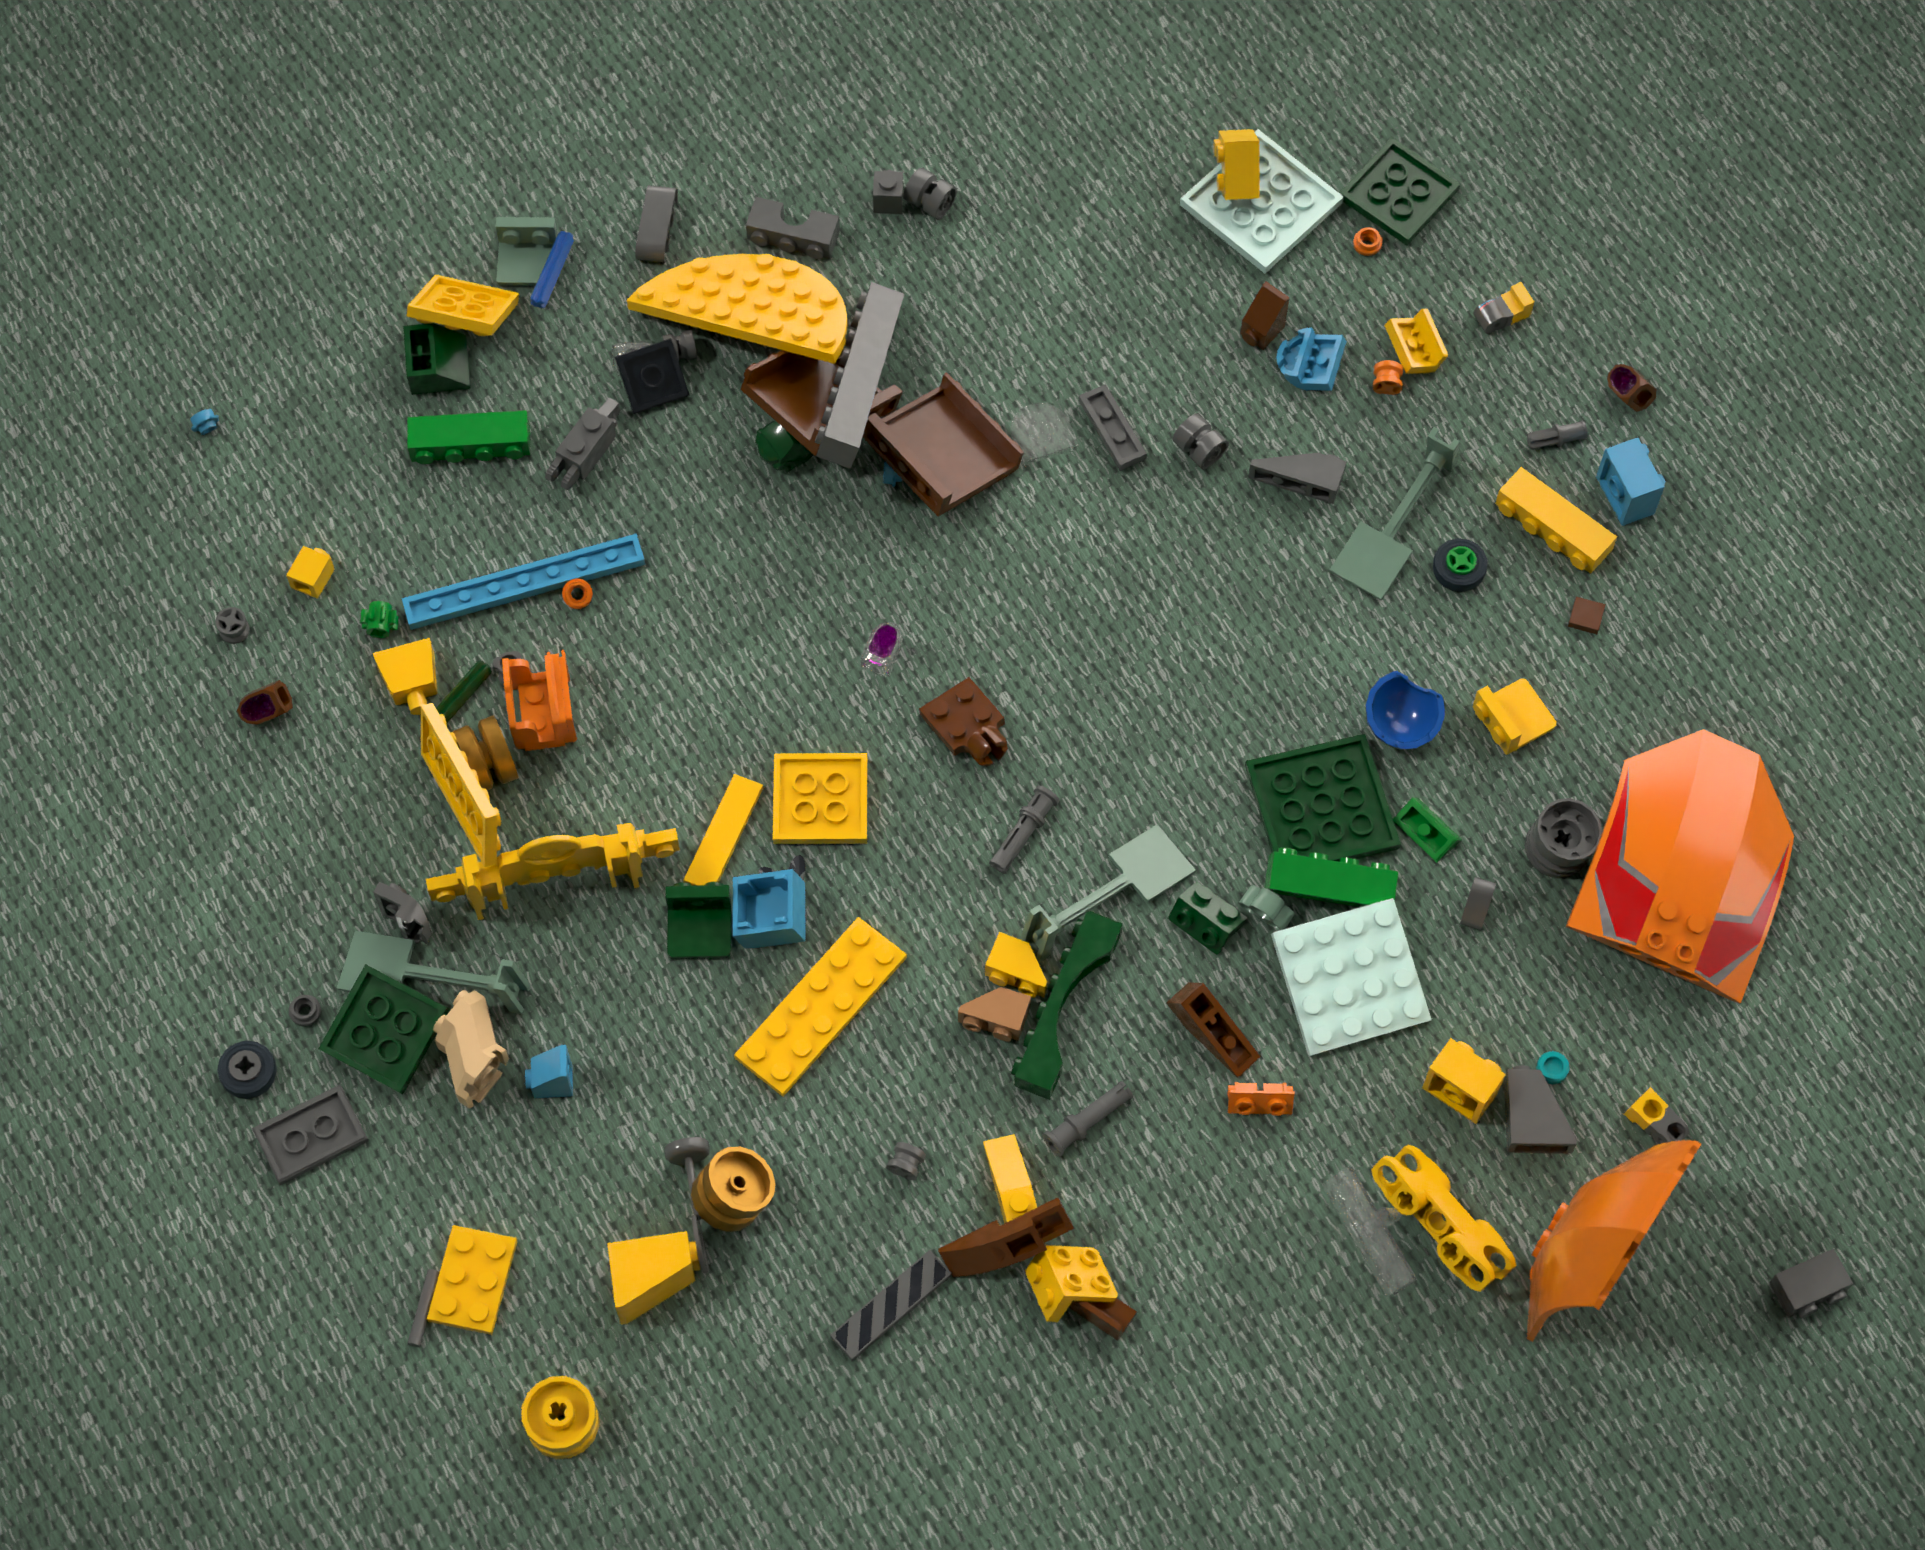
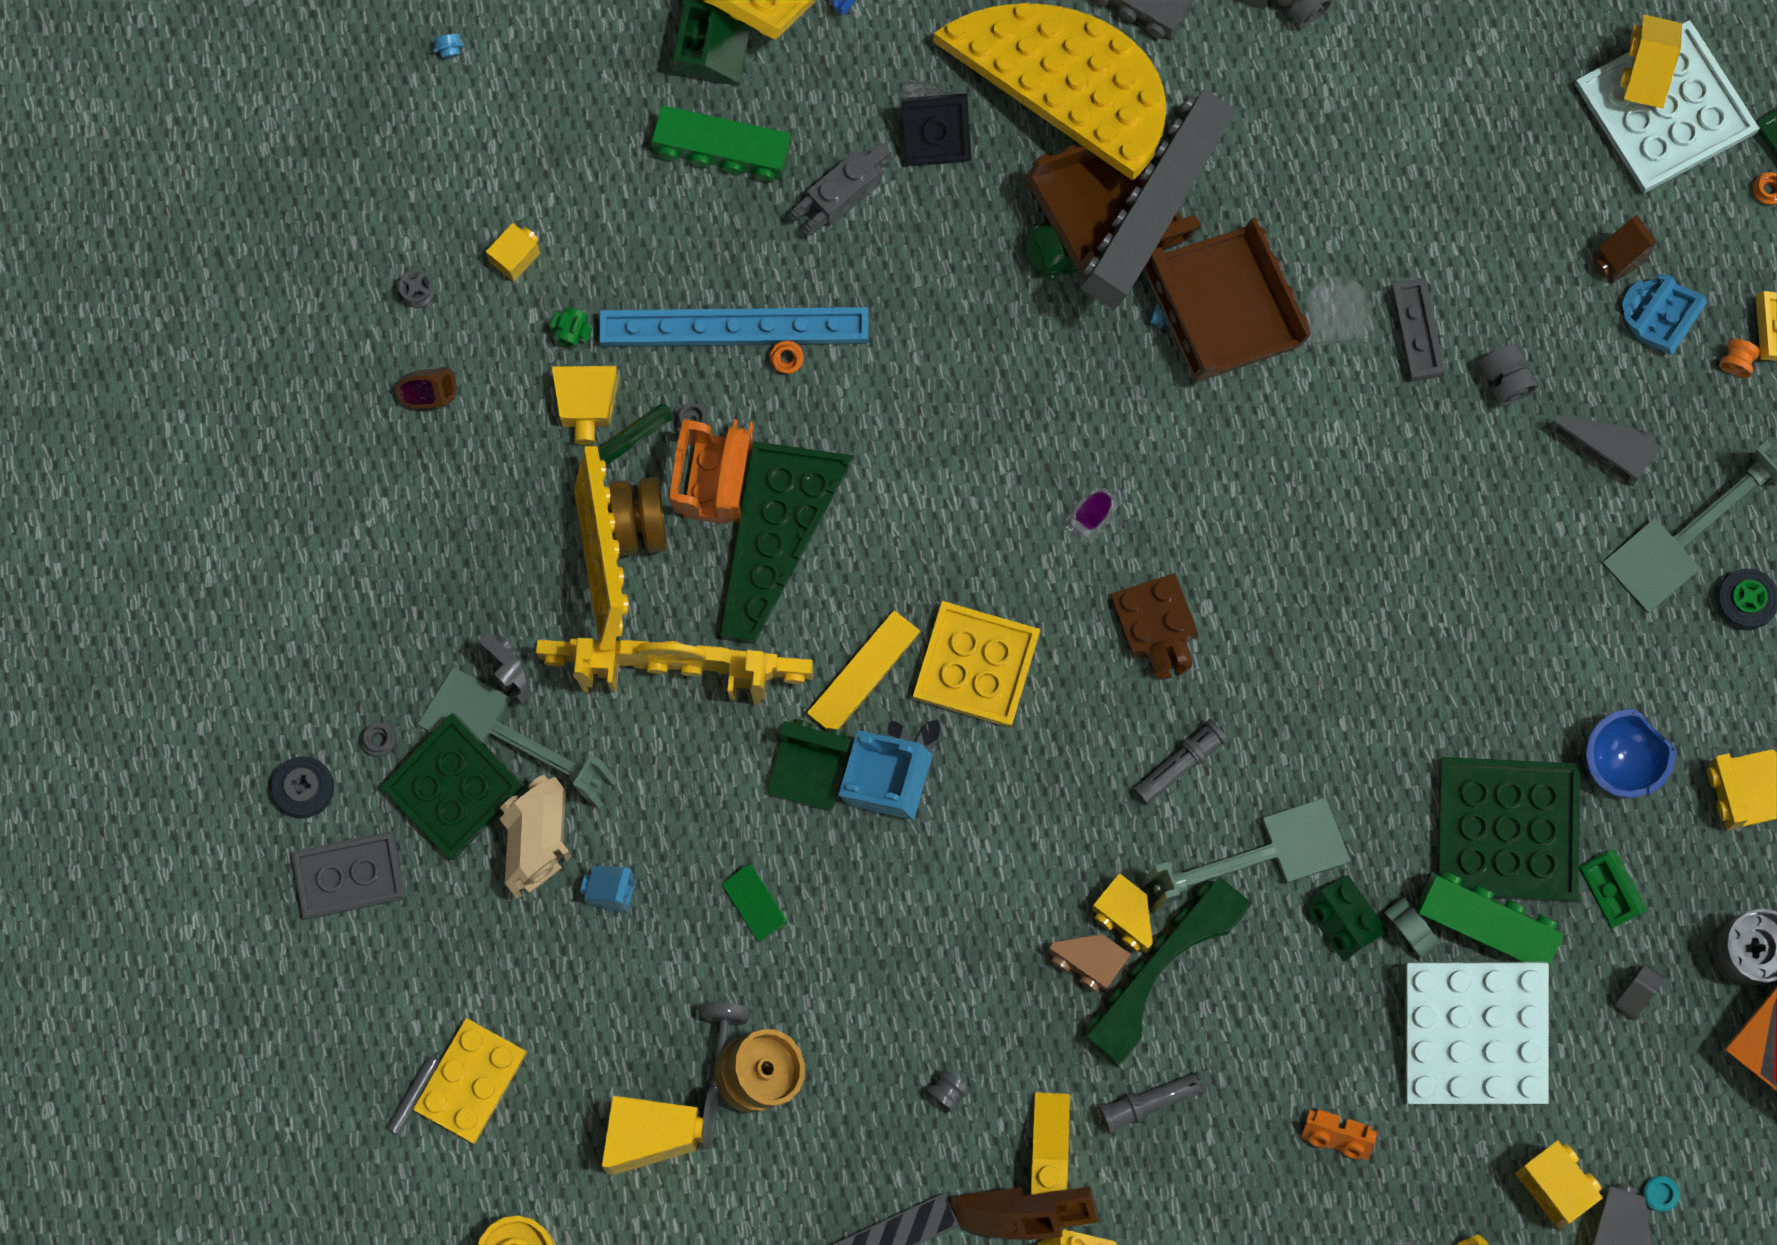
camera: 20 degrees right, 10 degrees up
(610, 724) = (779, 515): none -> dark green wing
(683, 345) = (979, 100): dark grey wheel -> none
(685, 1052) = (755, 903): none -> green slope
(820, 1006) = (910, 894): yellow plate -> none
(1213, 1027) = (1313, 1043): reddish brown slope -> none

